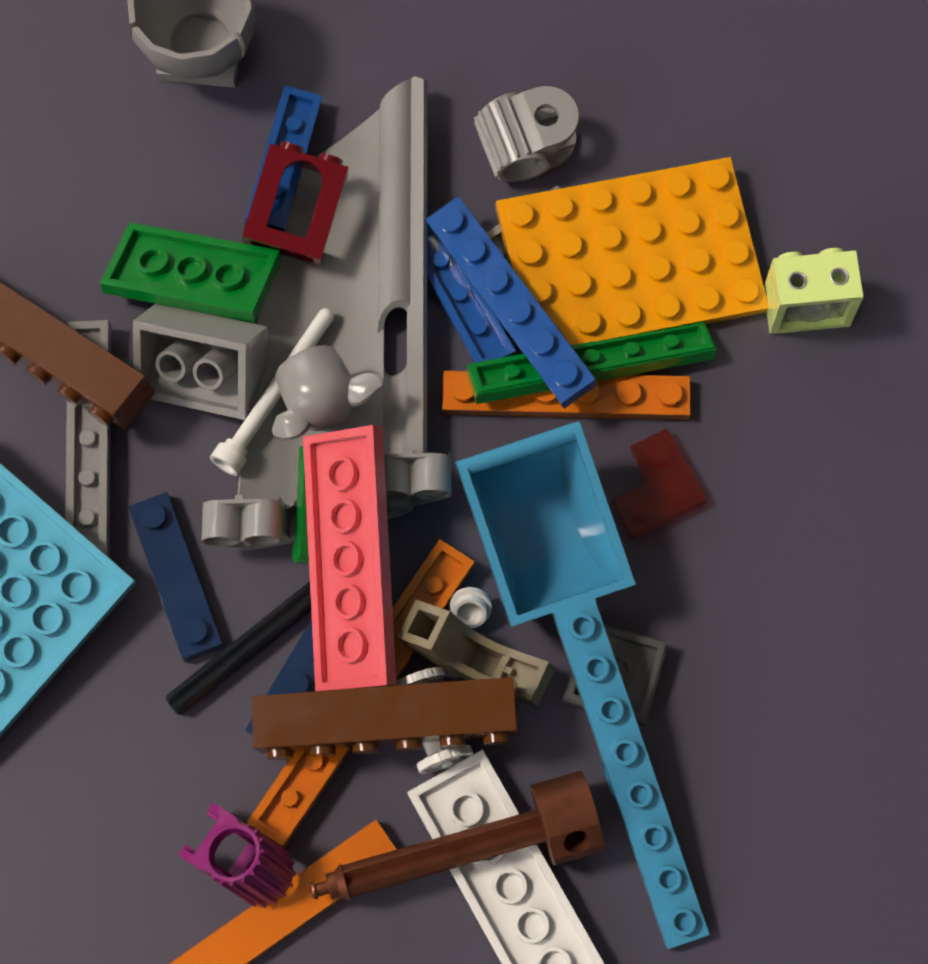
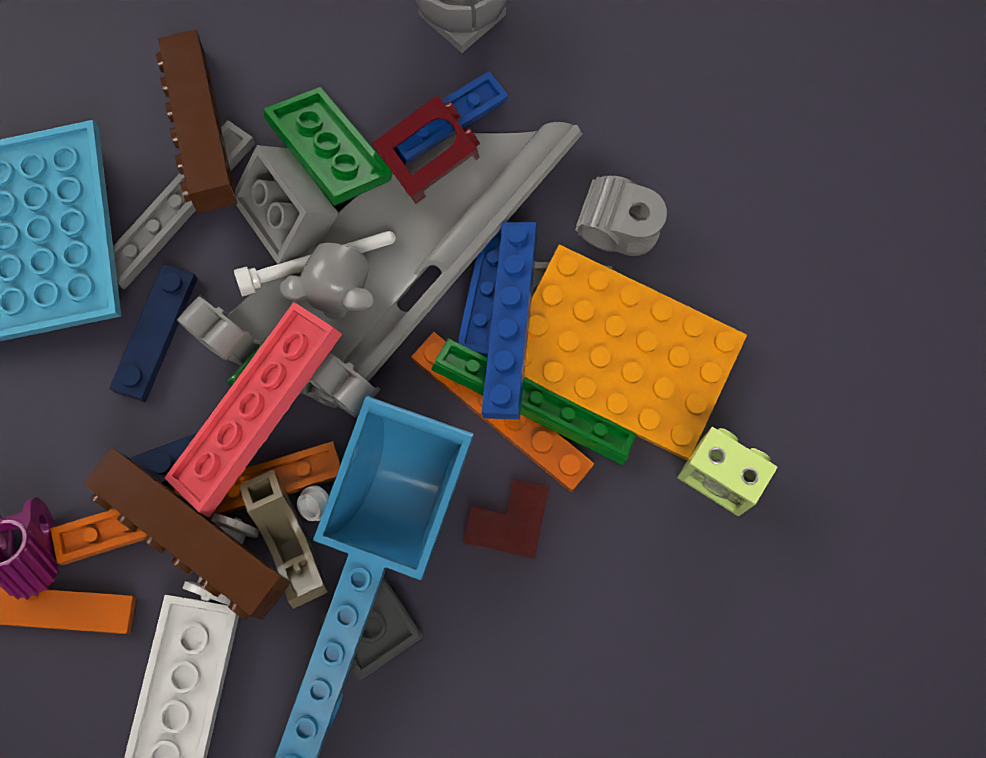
camera: 35 degrees right, 0 degrees up
(240, 651) = (144, 413): black axle -> none
(561, 818) = (240, 702): copper piece -> none

